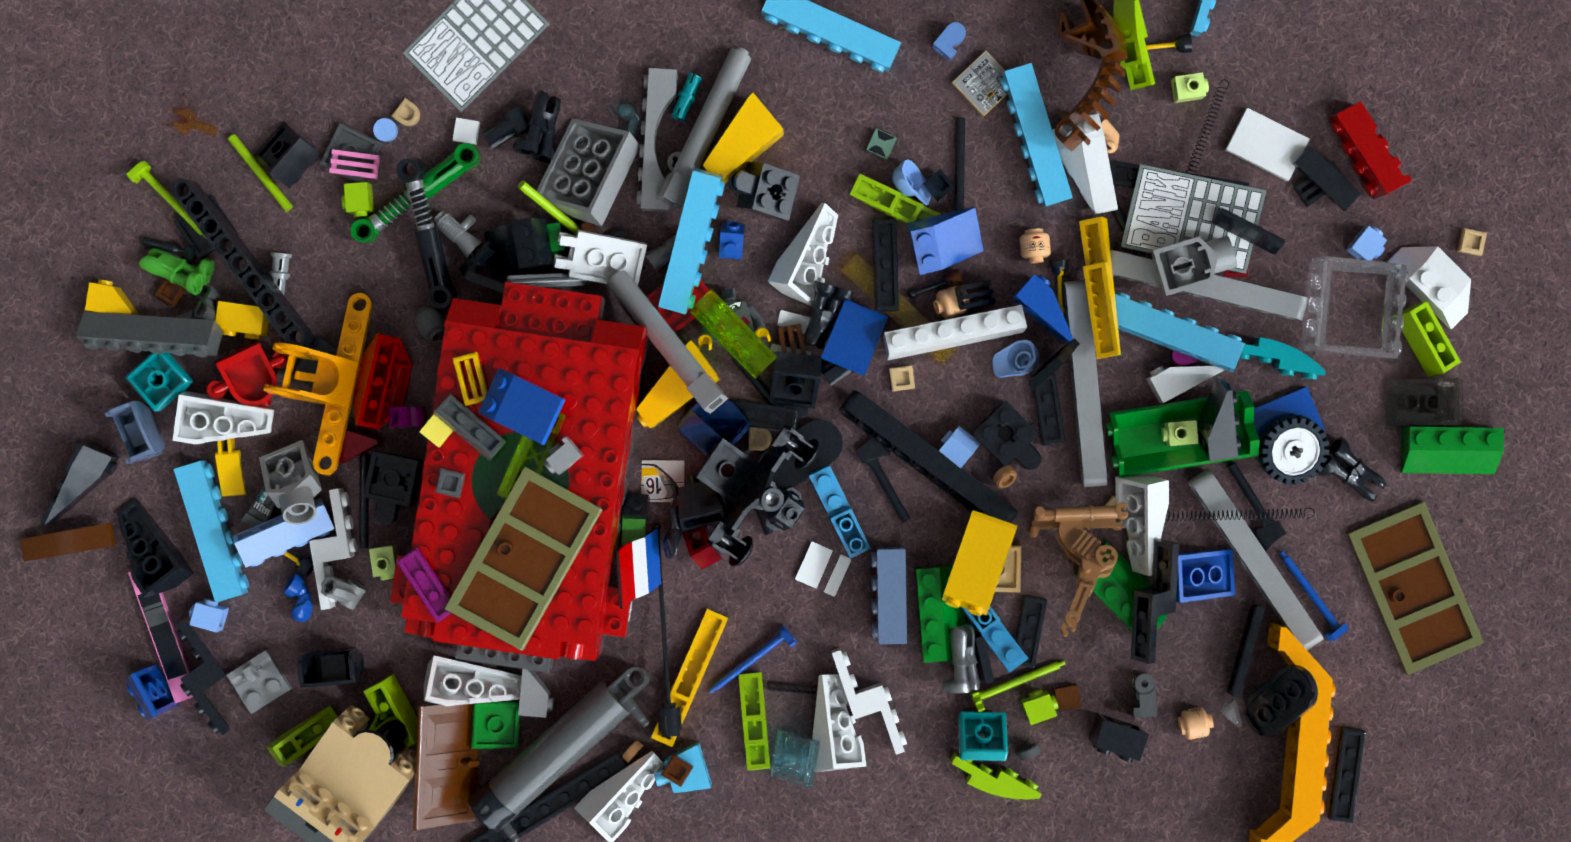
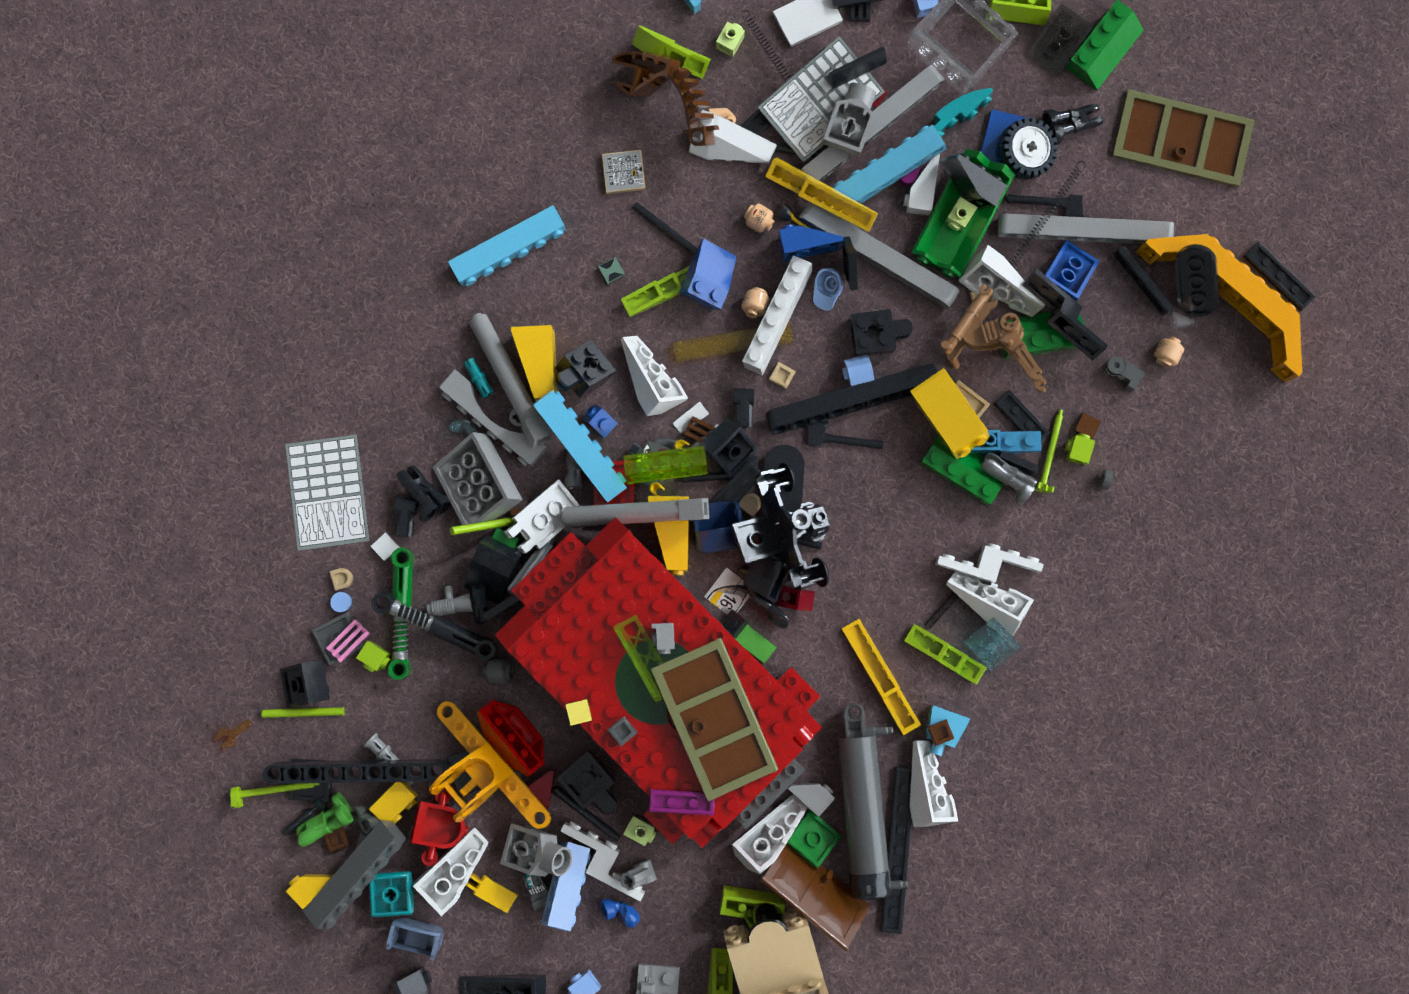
camera: 55 degrees left, 5 degrees down
(211, 530) = (525, 938): medium azure brick -> none
(303, 565) = (599, 891): black hinge -> none
(330, 667) = (686, 925): black piece -> none
(406, 416) = (551, 736): magenta leg -> none
(466, 358) = (578, 668): yellow tile -> none
(469, 427) = (594, 687): dark grey tile -> none
(521, 406) = (607, 637): blue slope -> none
(632, 751) = (903, 755): medium nougat tile -> none
(639, 574) = (786, 657): flag -> none
(784, 634) = (899, 587): blue piece -> none
(815, 564) = (866, 530): white sticker -> none
(821, 319) = (701, 399): black piece -> none
(839, 511) = (842, 485): dark azure slope -> none
(854, 337) = (730, 385): blue tile -> none
(885, 265) = (696, 328): black tile -> none
(890, 594) = (926, 492): sand blue brick -> none
(910, 181) = (652, 269): light blue cap -> none
(938, 185) = (669, 252): black plate -> none
(950, 37) = (575, 172): medium blue leg -> none
(952, 279) = (739, 290): hinge -> none
(985, 292) = (766, 275): black tile -> none
(993, 726) = (1068, 491): teal brick -> none
(1003, 784) = (1114, 515): lime slope -> none
(1004, 477) = (902, 355): medium nougat tile -> none
(1036, 134) = (685, 162): medium azure brick -> none
(1049, 412) = (880, 293): black tile -> none
(1118, 737) = (1145, 407): black brick -> none
(1182, 44) = (697, 22): black hinge -> none
(1338, 629) = (1174, 208): blue piece -> none

